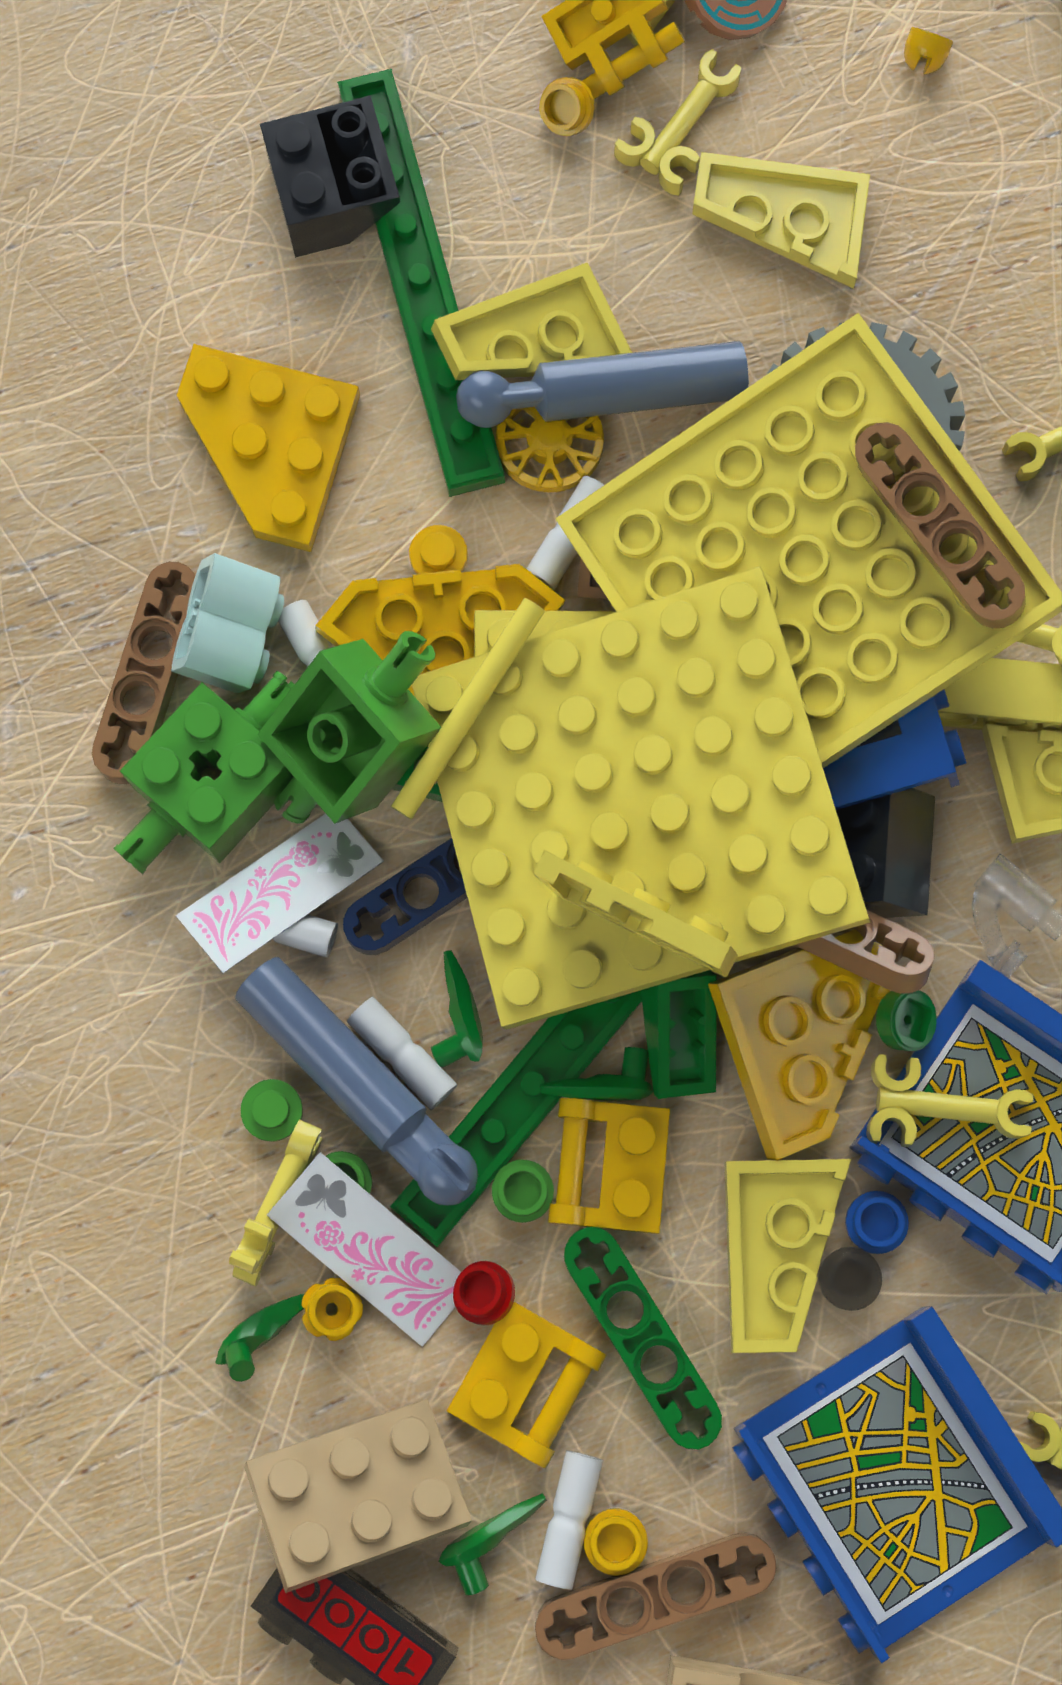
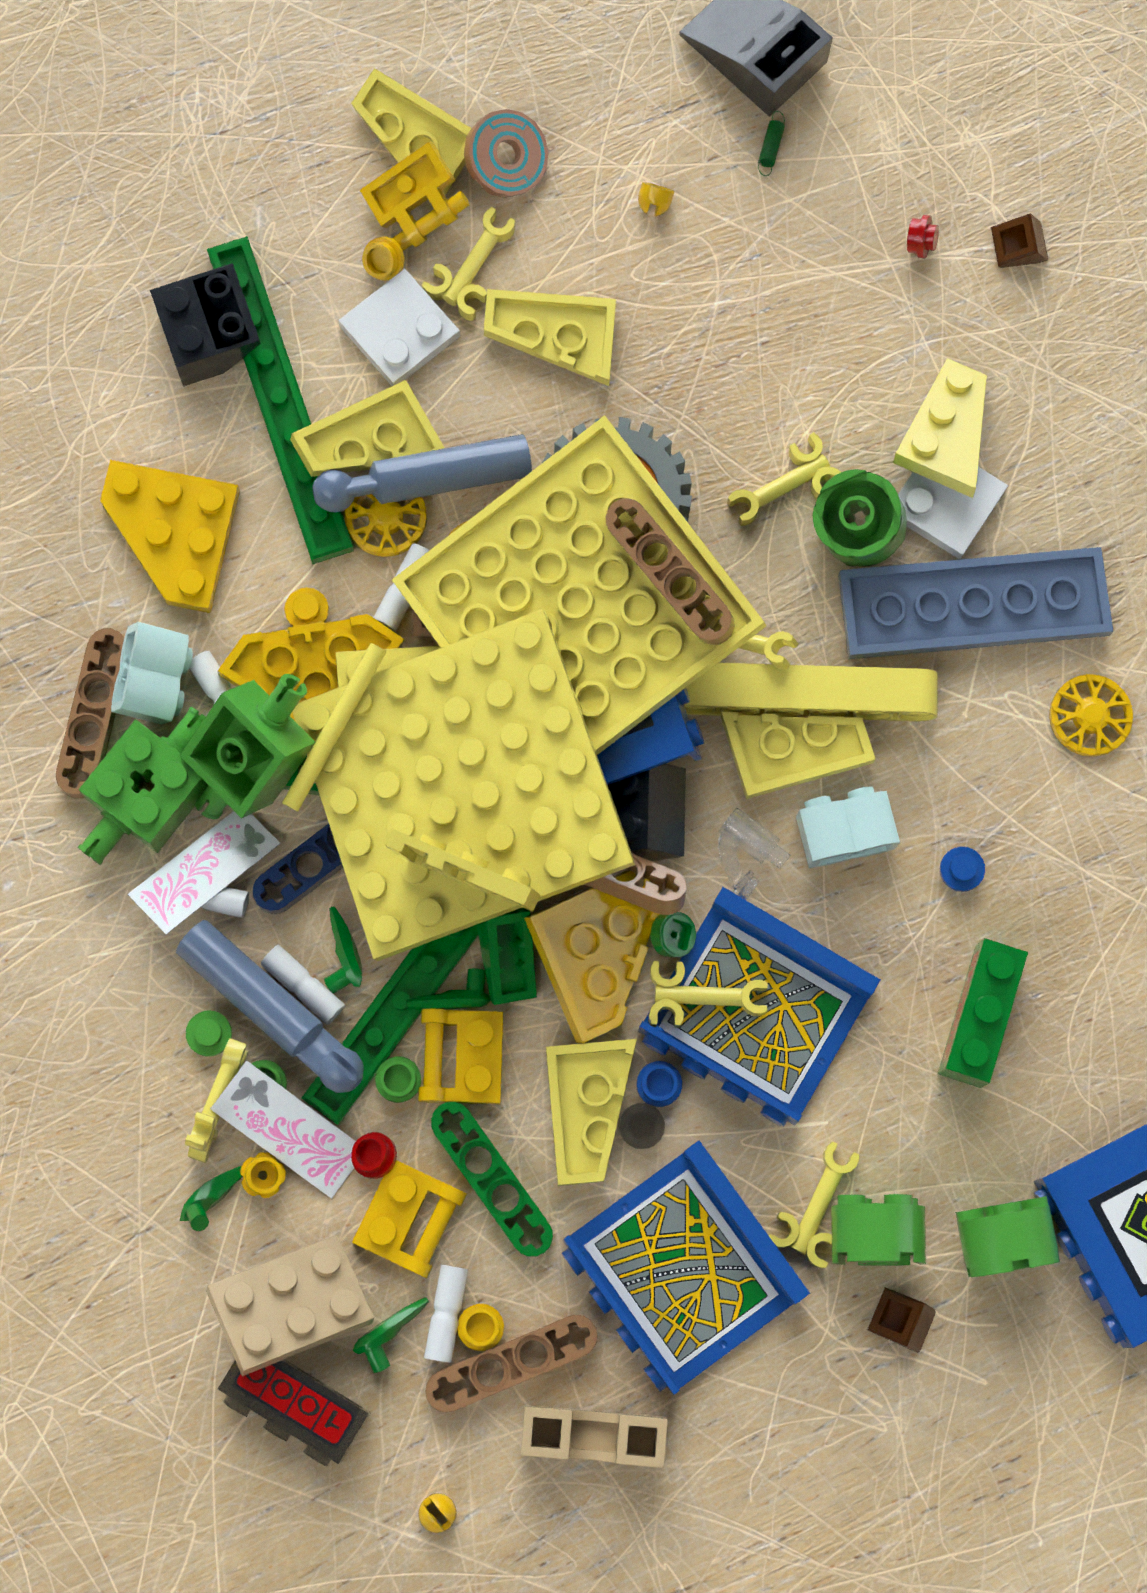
camera: 10 degrees left, 0 degrees up
(582, 197) = (399, 328): none -> white plate

